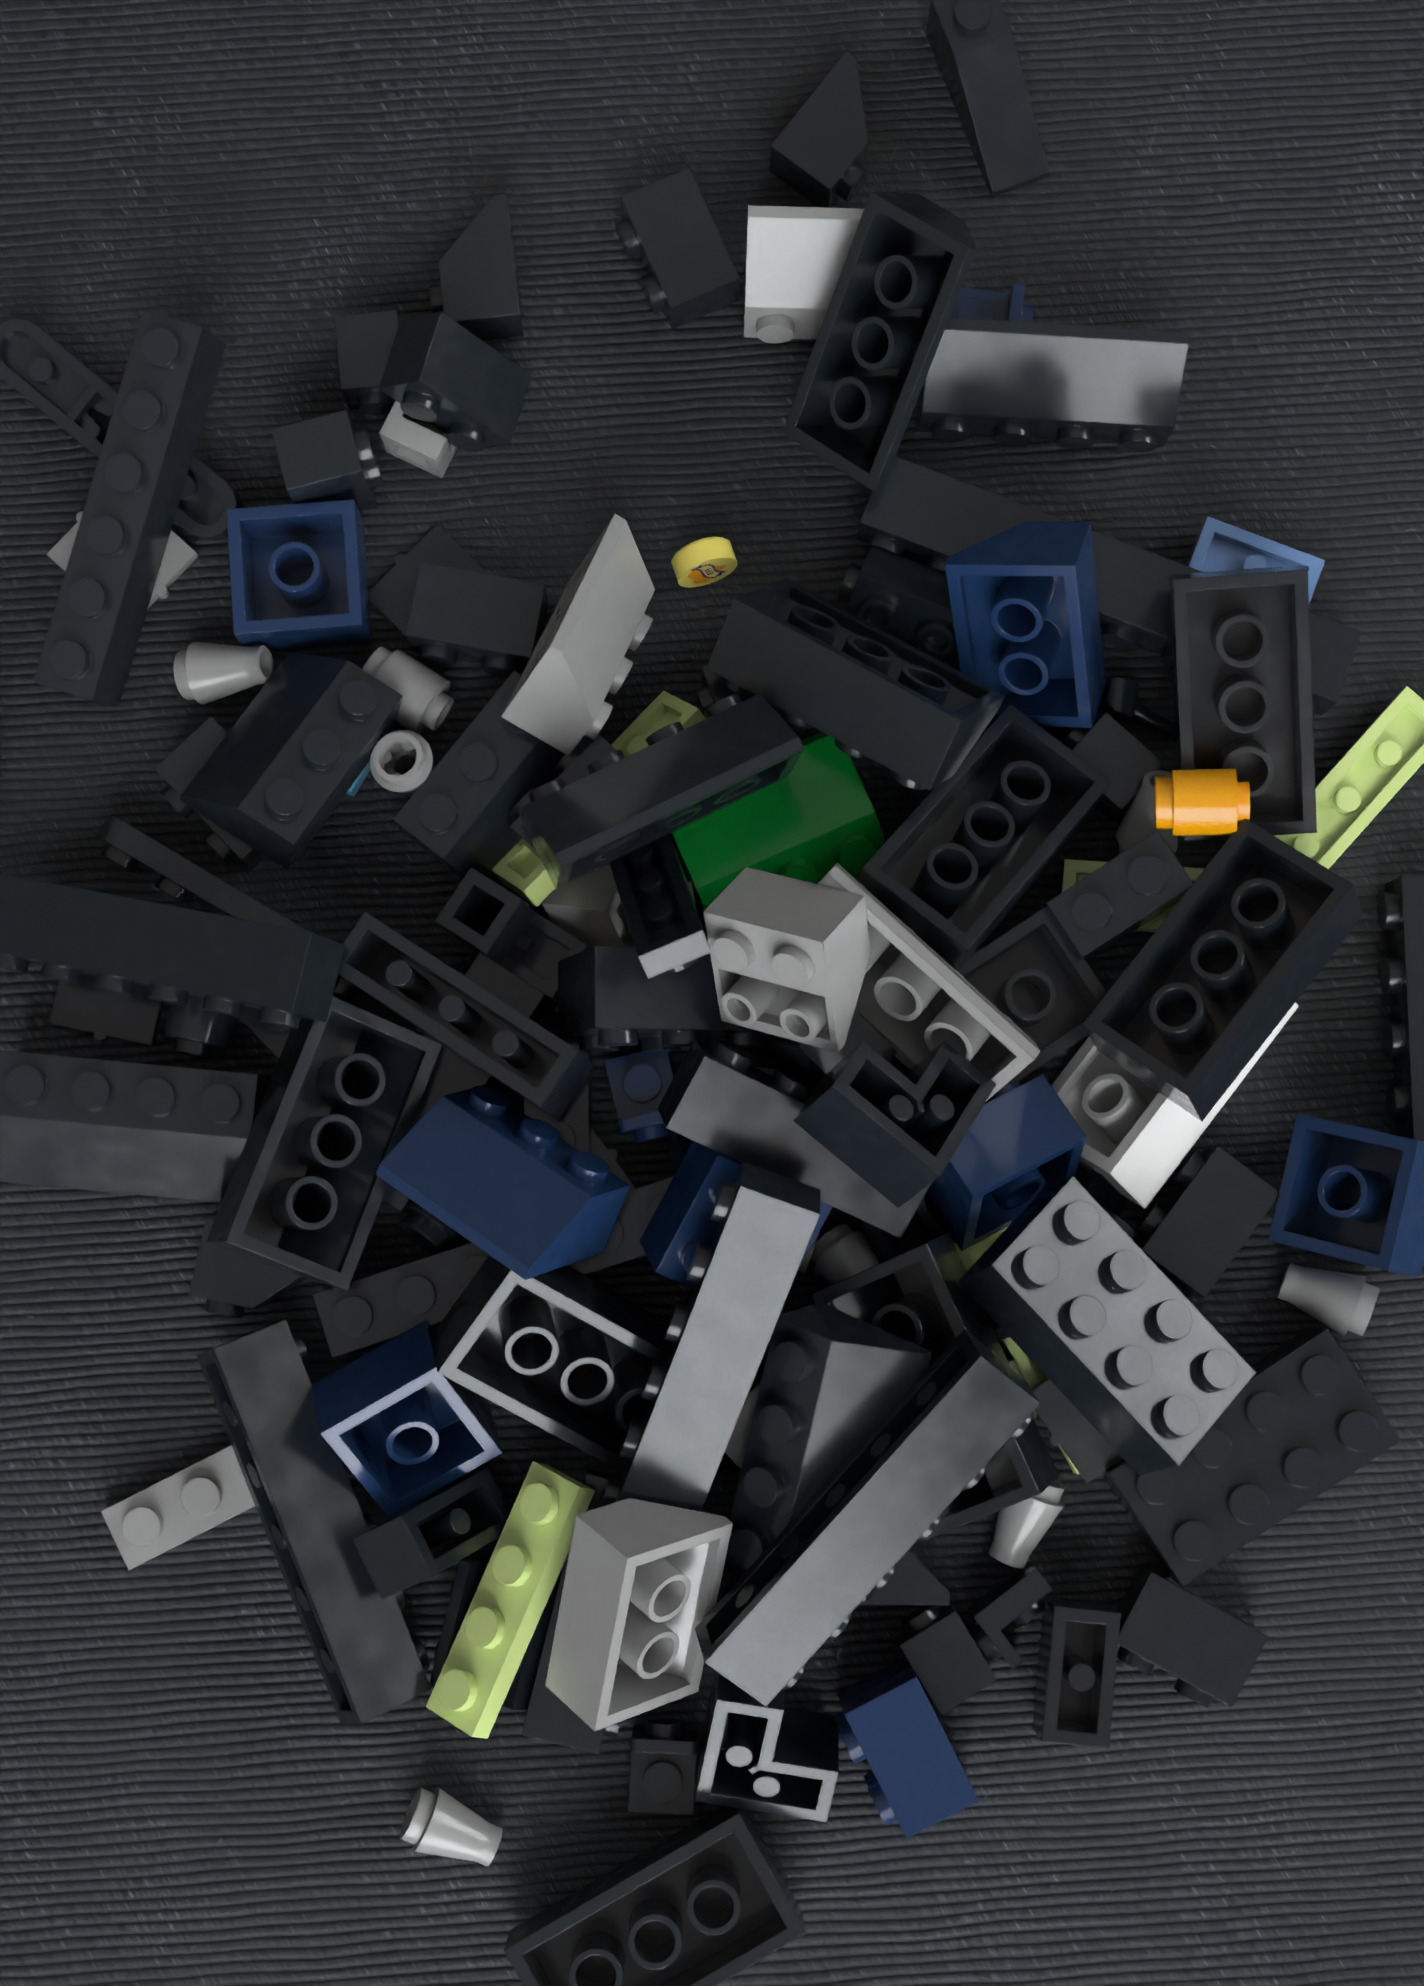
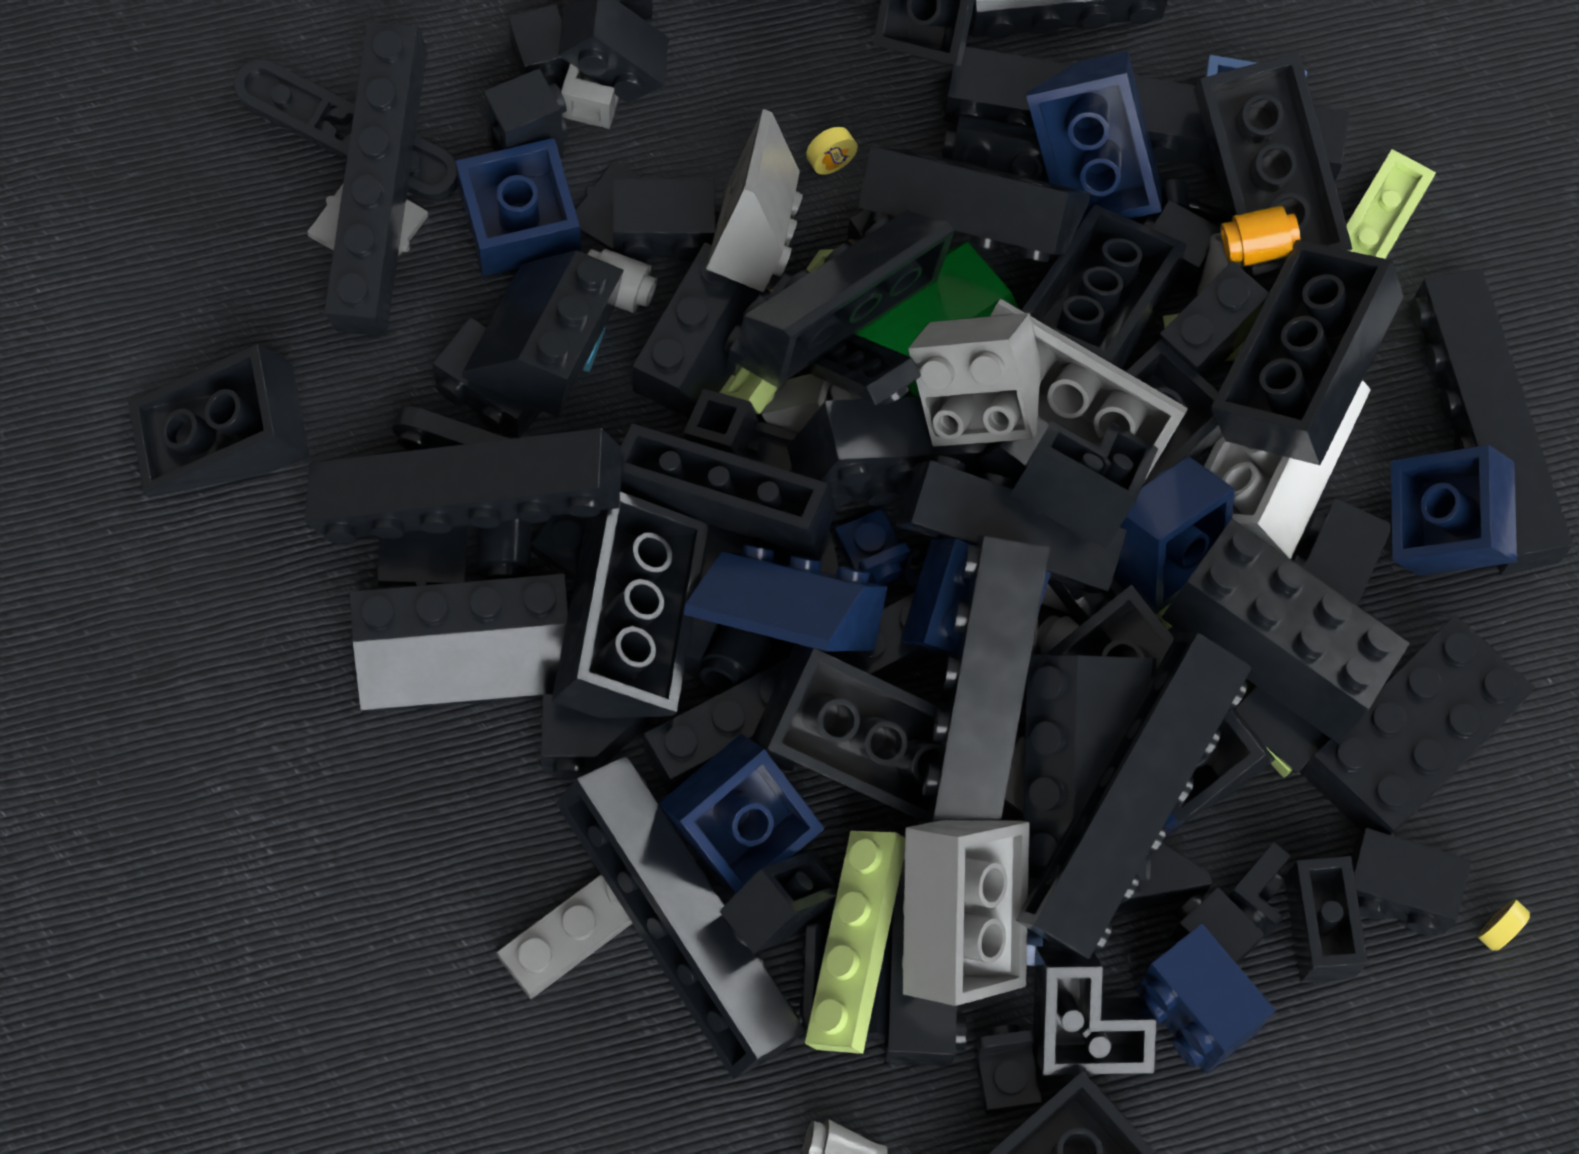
camera: 15 degrees left, 15 degrees down
(219, 670) = (467, 288): light grey cone -> none
(401, 761) = (630, 326): light grey cone -> none
(1024, 1525) = (1253, 814): light grey cone -> none
(1291, 1710) = (1504, 925): none -> light yellow tile
(1331, 1297) = (1446, 600): light grey cone -> none

